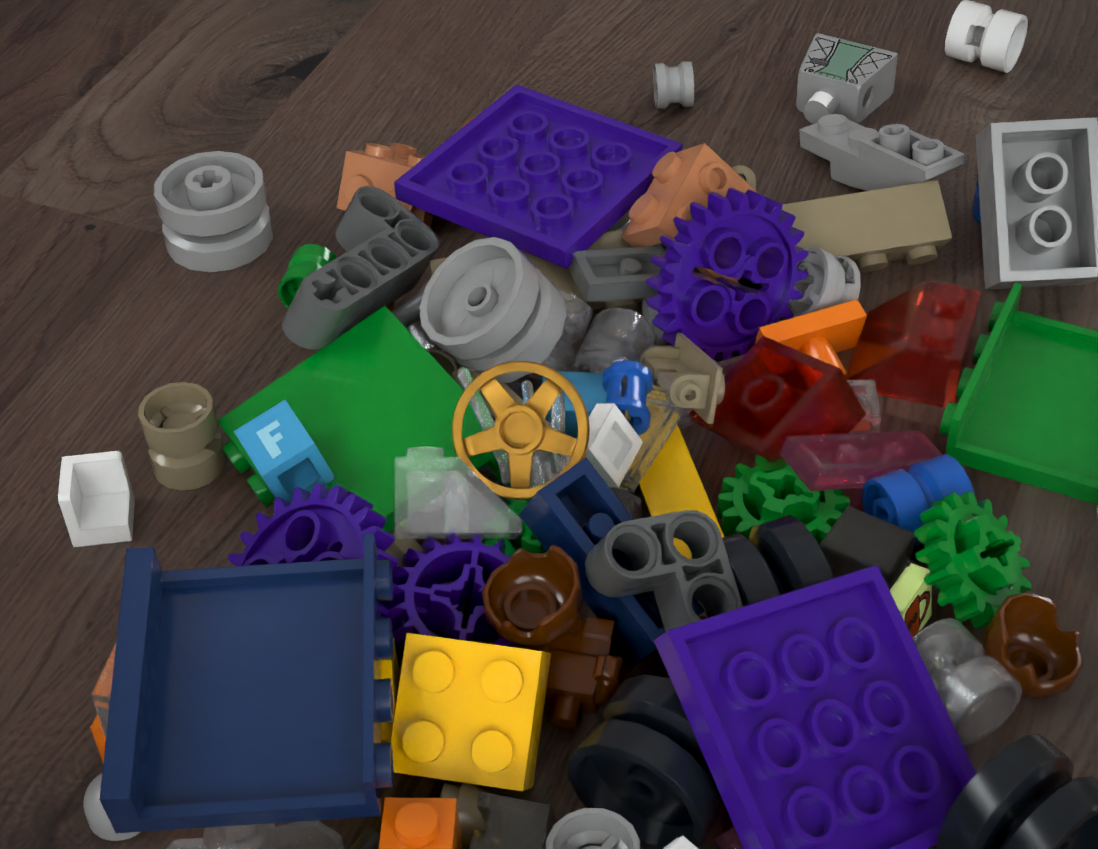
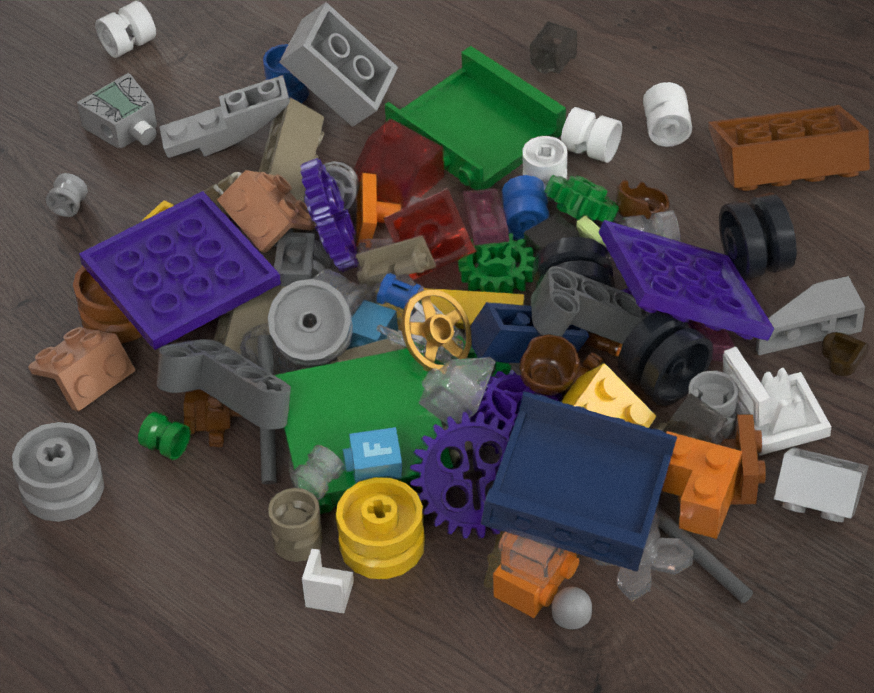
camera: 70 degrees left, 5 degrees up
(194, 507) = (380, 528): none -> yellow wheel
(229, 405) = (318, 471): none -> clear wheel
(1027, 488) = (544, 158): none -> white wheel

